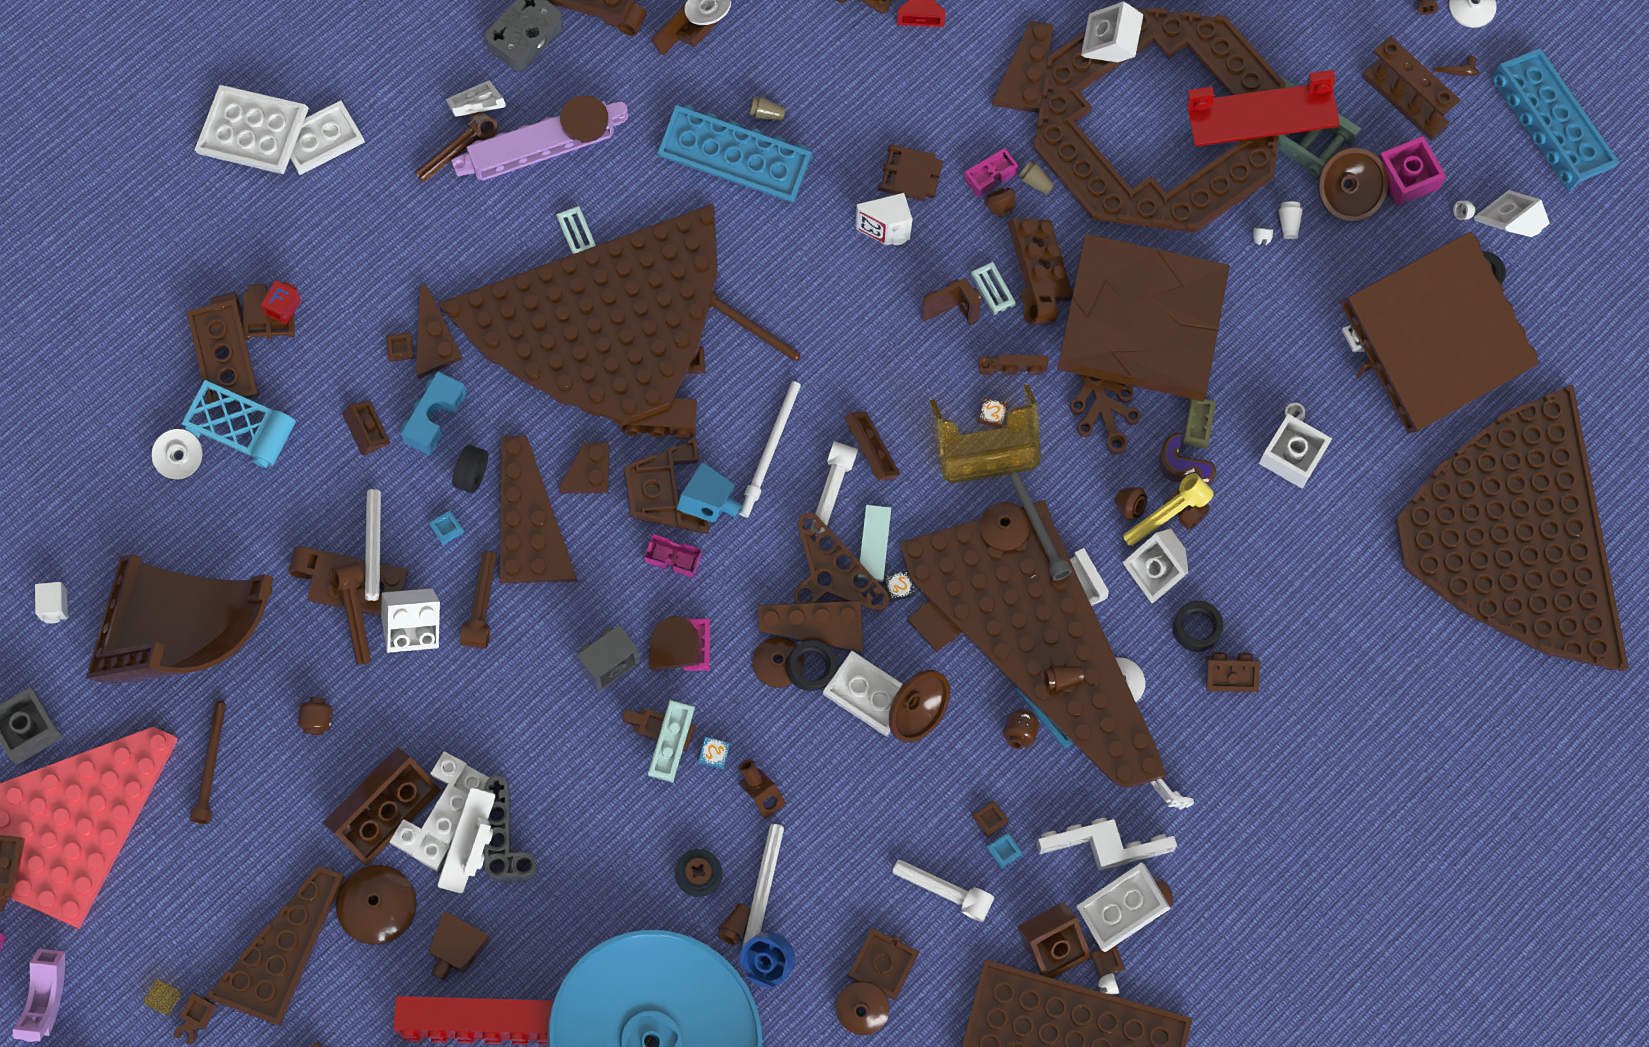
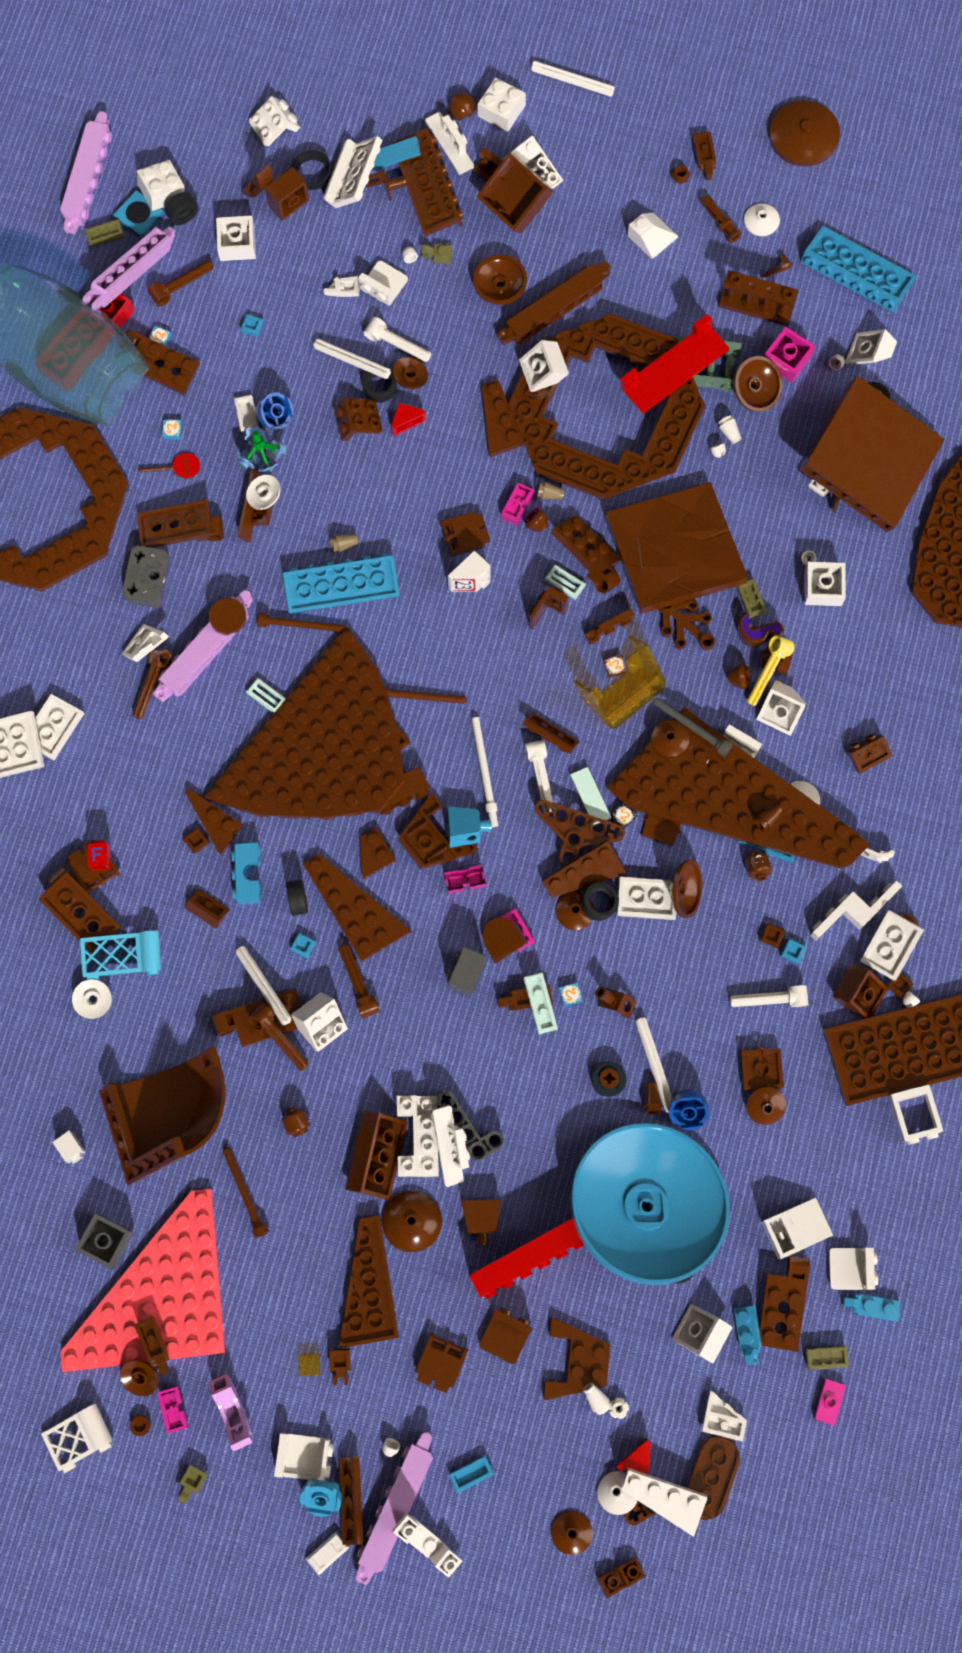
camera: 25 degrees left, 5 degrees up
(626, 148) = (265, 620): none -> reddish brown piece
(1206, 609) = (837, 722): black tyre -> none

